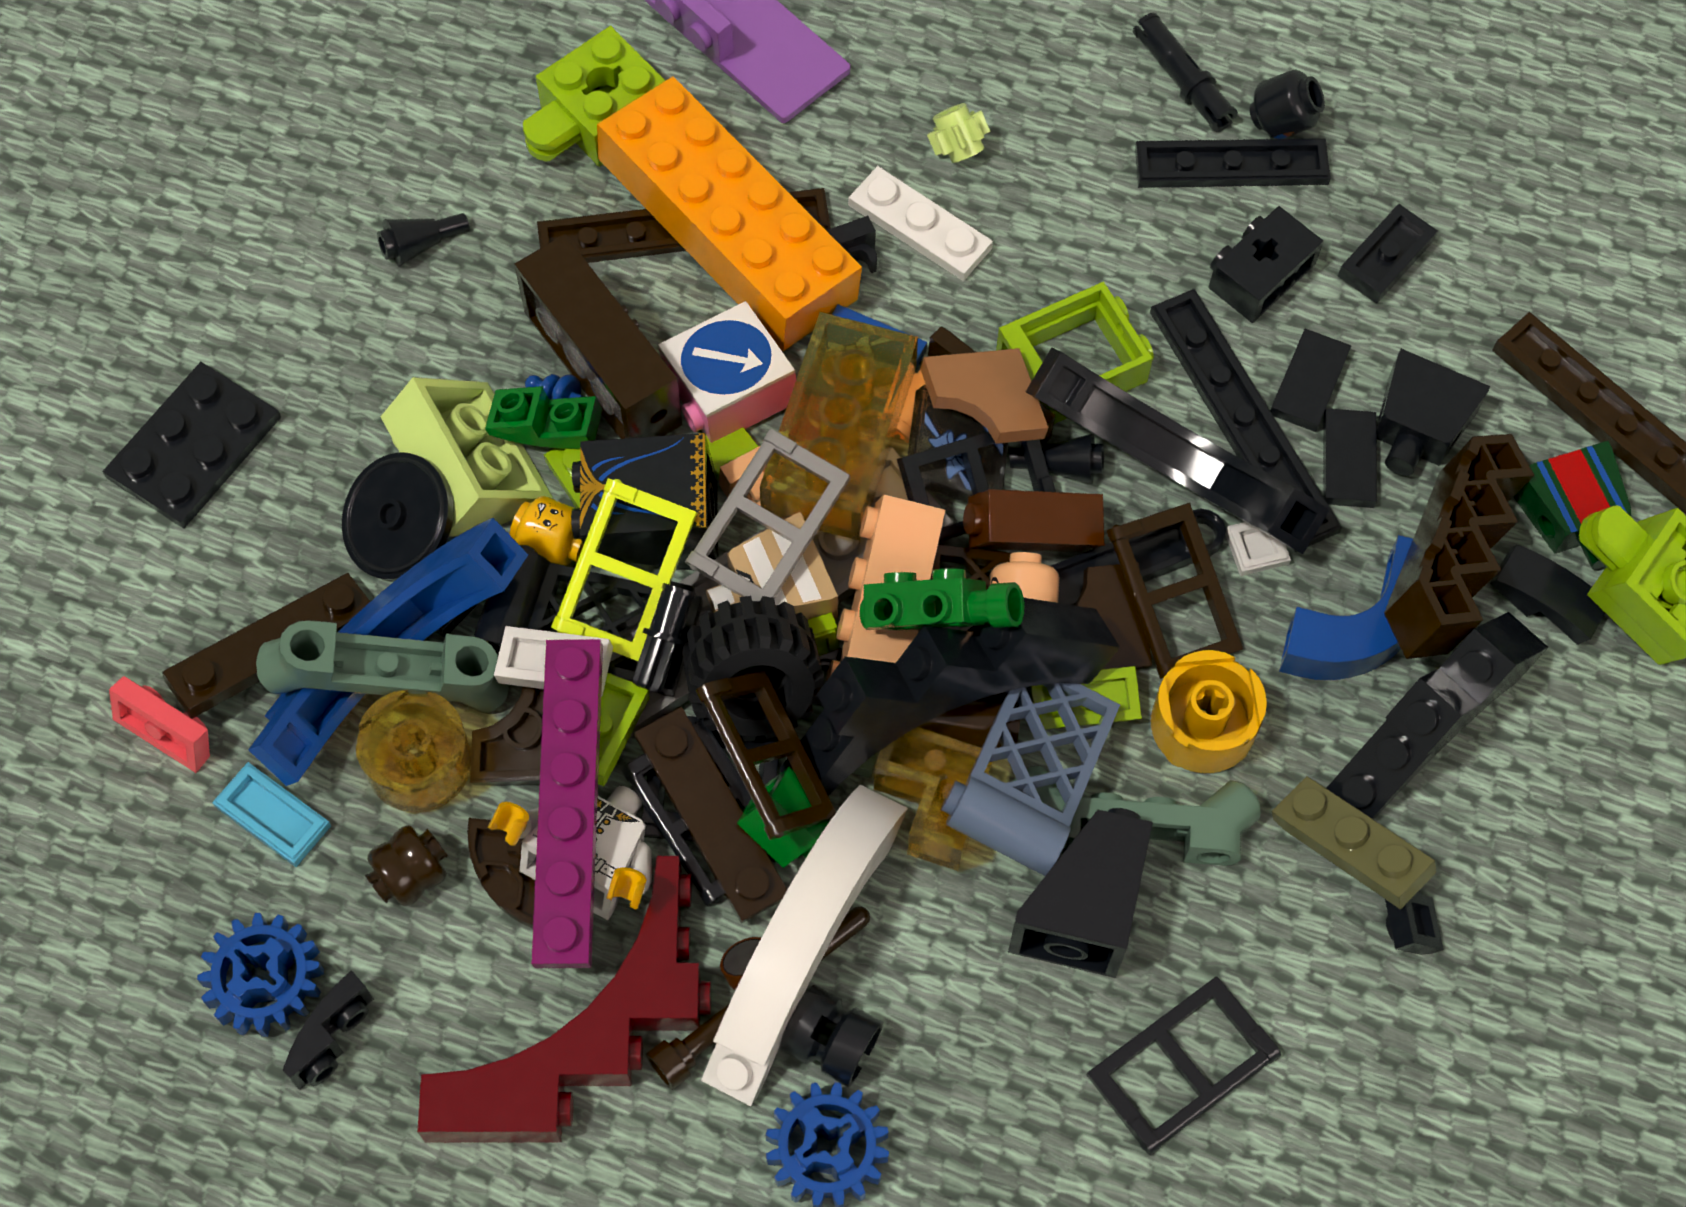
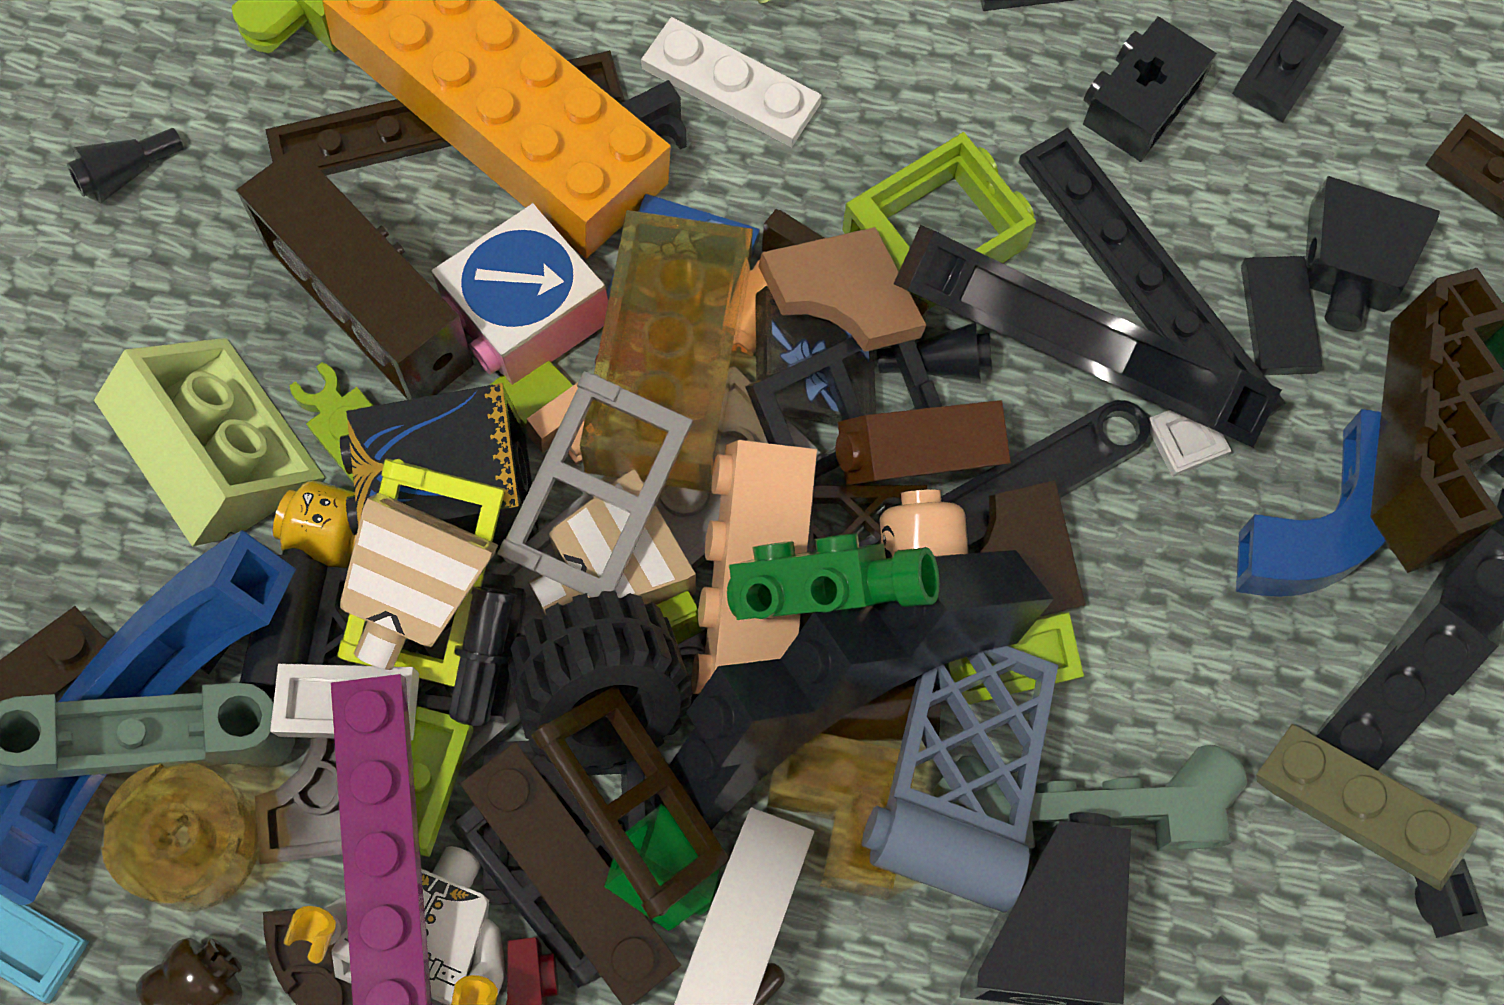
camera: 10 degrees left, 5 degrees up
(396, 514) = (128, 526): black shield -> none
(535, 420) = (288, 382): green slope -> none
(557, 387) = (314, 341): blue hair -> none
(615, 568) = (407, 577): none -> torso
(1205, 579) = (1136, 491): dark brown window -> none
(1233, 716) = (1180, 629): yellow brick -> none
(1310, 380) = (1220, 224): black tile -> none

